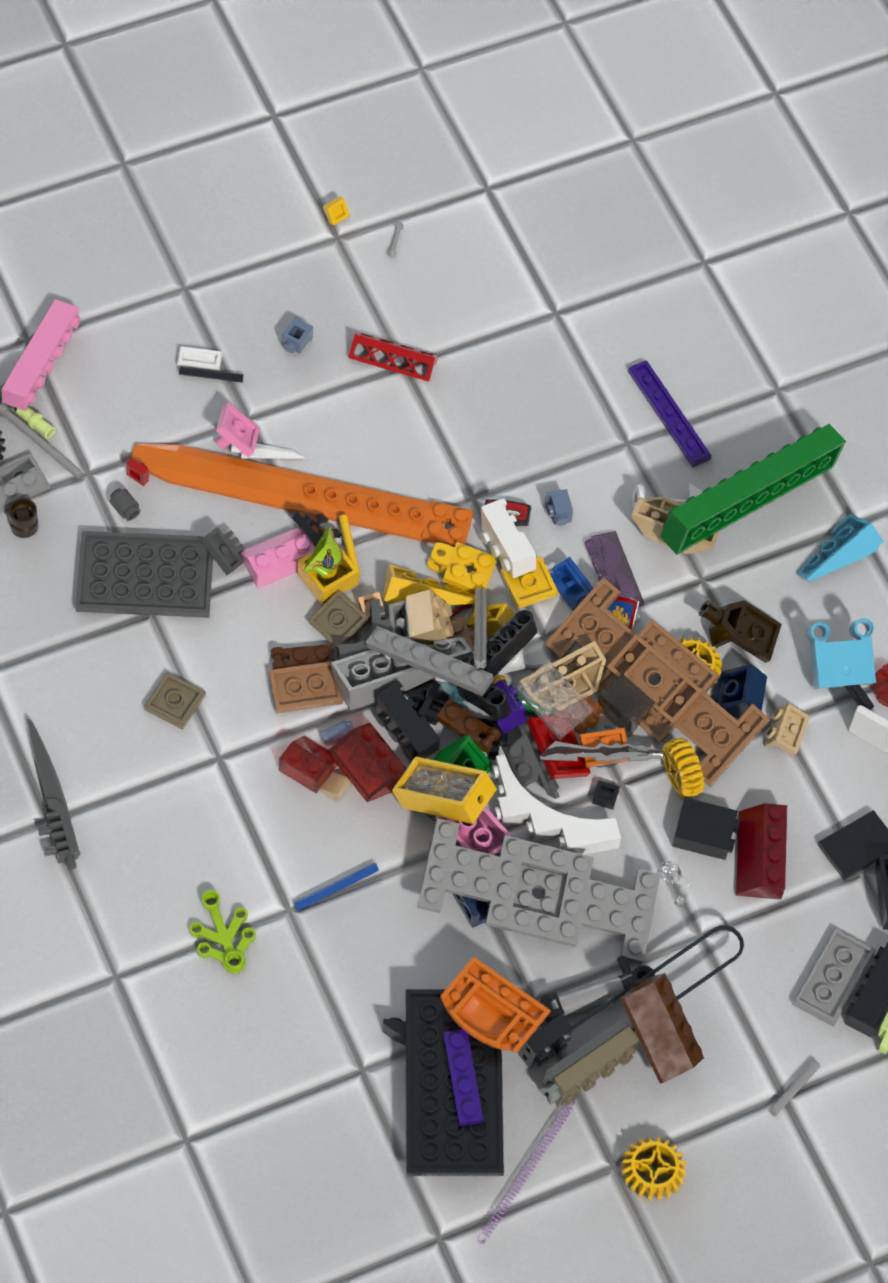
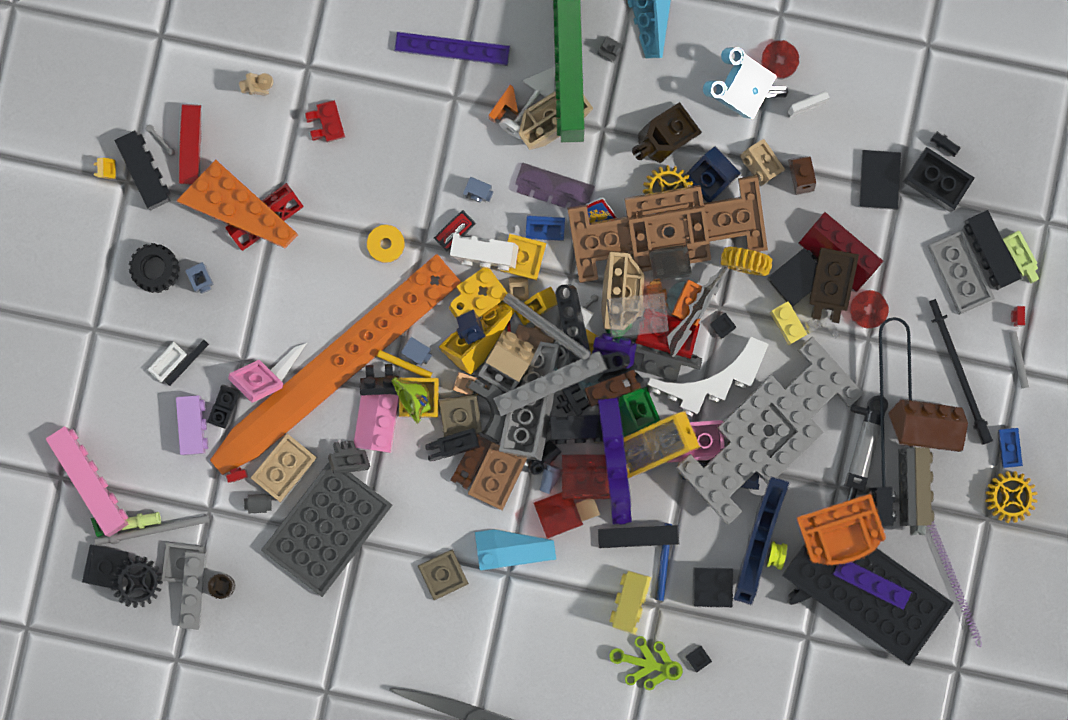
camera: 50 degrees left, 25 degrees up
(156, 408) = (191, 425): none -> lavender brick
(174, 505) = (283, 467): none -> tan plate
(193, 427) = (223, 406): none -> black slope
(241, 740) = (507, 549): none -> medium azure wedge
(263, 979) = (698, 659): none -> black tile
(273, 875) = (630, 601): none -> light yellow wedge
(277, 308) = (142, 256): none -> black tyre
(306, 628) = (454, 444): none -> black hinge
(343, 844) = (638, 536): none -> black slope
(345, 942) = (712, 587): none -> black brick
(357, 239) = (142, 170): none -> black brick
(359, 715) = (550, 453): none -> black plate
(369, 545) = (417, 351): none -> sand blue brick
(385, 318) = (231, 202): none -> orange wing
(397, 762) = (615, 461): none -> dark purple arch
(410, 259) = (189, 143): none -> red slope
(422, 978) = (776, 555): none -> neon yellow wheel
(424, 953) = (759, 540): none -> dark blue arch
(428, 570) = (470, 327): none -> dark blue brick
(451, 455) = (385, 232): none -> yellow tile
(498, 595) = (519, 287): none -> tan slope
(506, 275) = (256, 84): none -> tan hips
(522, 357) = (330, 122): none -> red plate
(655, 846) = (788, 323): none -> light yellow brick
(658, 480) = (506, 101): none -> orange slope
(701, 1091) = (980, 423): none -> black bar
(701, 1135) = (1010, 447): none -> blue plate
(726, 854) = (832, 282): none -> dark brown tile
(734, 903) = (859, 315): none -> clear red plate
(779, 538) = (610, 49): none -> dark grey tile
(809, 764) = (802, 174): none -> reddish brown torso
(836, 1055) = (1018, 316): none -> red plate

